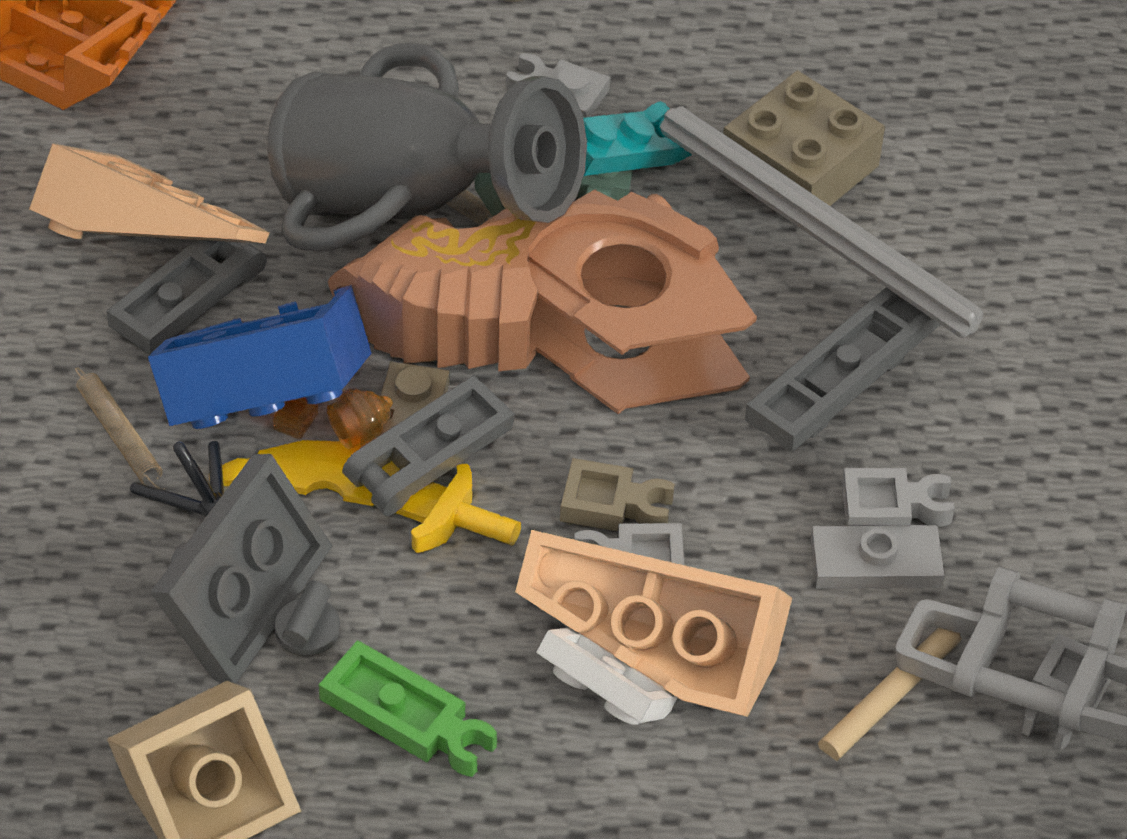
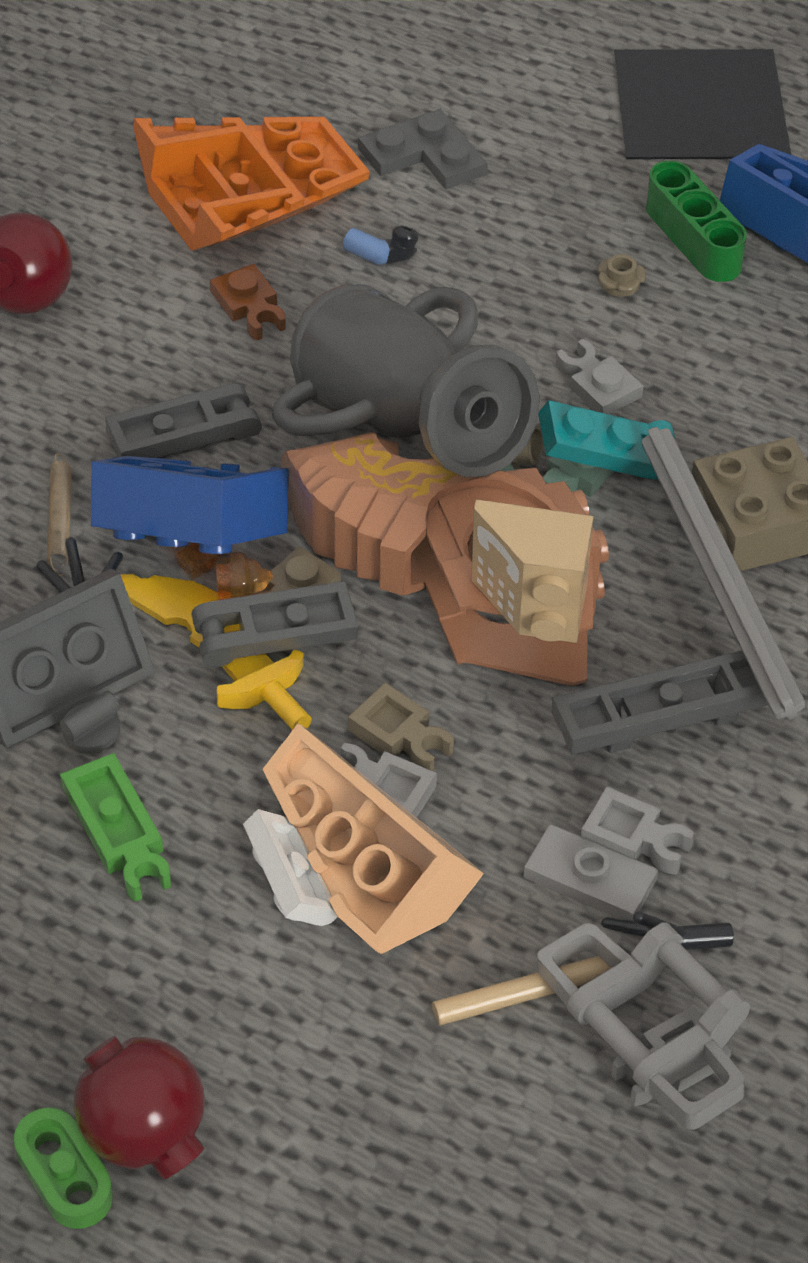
camera: 30 degrees right, 0 degrees up
(117, 197) = (178, 335): light nougat wedge -> none
(158, 133) = (249, 296): none -> dark orange plate
(261, 39) = (382, 251): none -> arm
(691, 280) = (533, 566): none -> tan slope
(1025, 562) = (693, 936): none -> black plant

